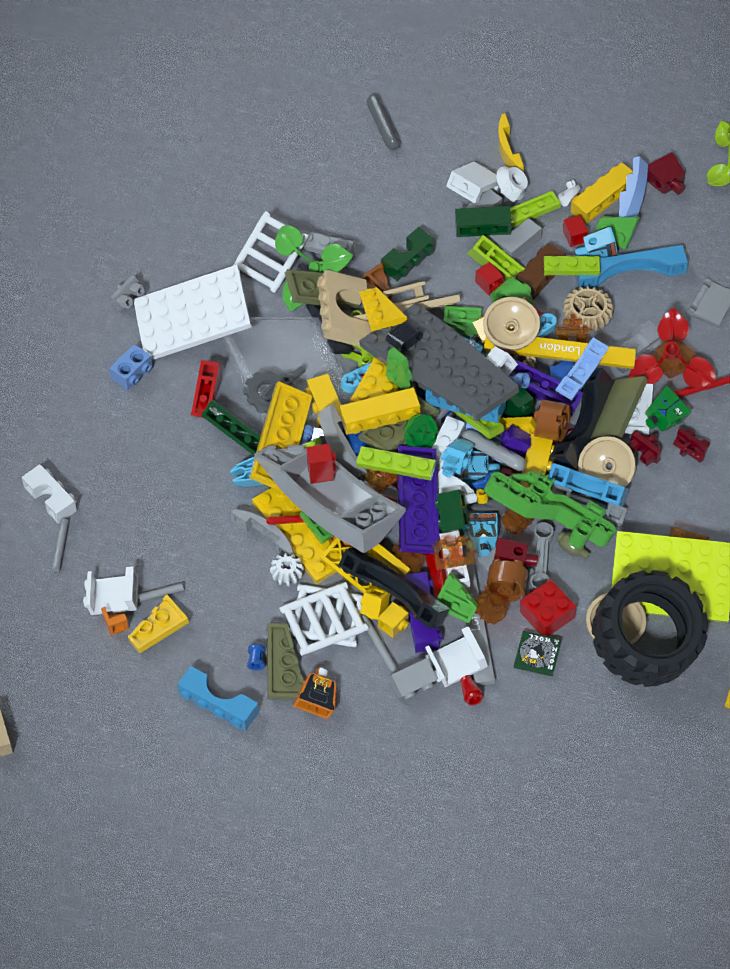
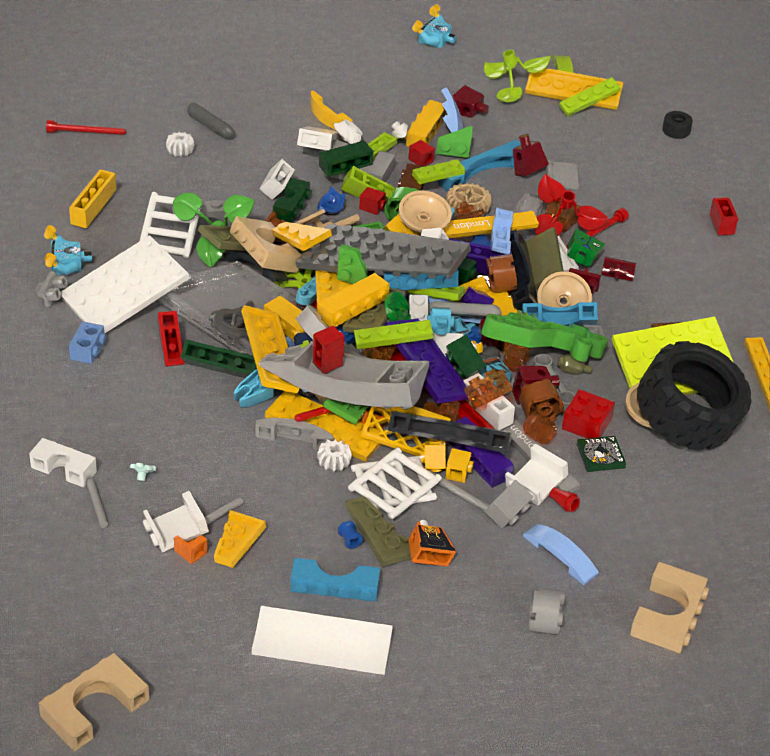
camera: 30 degrees left, 15 degrees down
(112, 524) = (142, 470): none -> light aqua plant
(158, 256) = (64, 255): none -> medium azure torso
(177, 753) = (322, 640): none -> white arch
(215, 194) = (92, 198): none -> yellow brick
(224, 84) = (52, 127): none -> red piece
(336, 145) = (180, 144): none -> white gear
(376, 799) = (545, 611): none -> light grey brick
(404, 336) = (336, 239): black piece -> none
(405, 223) = (276, 179): none -> white brick
(435, 744) = (564, 549): none -> light blue slope
(447, 268) = (332, 201): none -> blue hat
(457, 599) = (508, 421): bright green wing -> none
(485, 860) = (672, 630): none -> tan arch
(599, 244) = (451, 150): medium azure torso -> none
(681, 272) = (528, 156): none -> dark red torso
(691, 61) = (435, 31): none -> medium azure torso

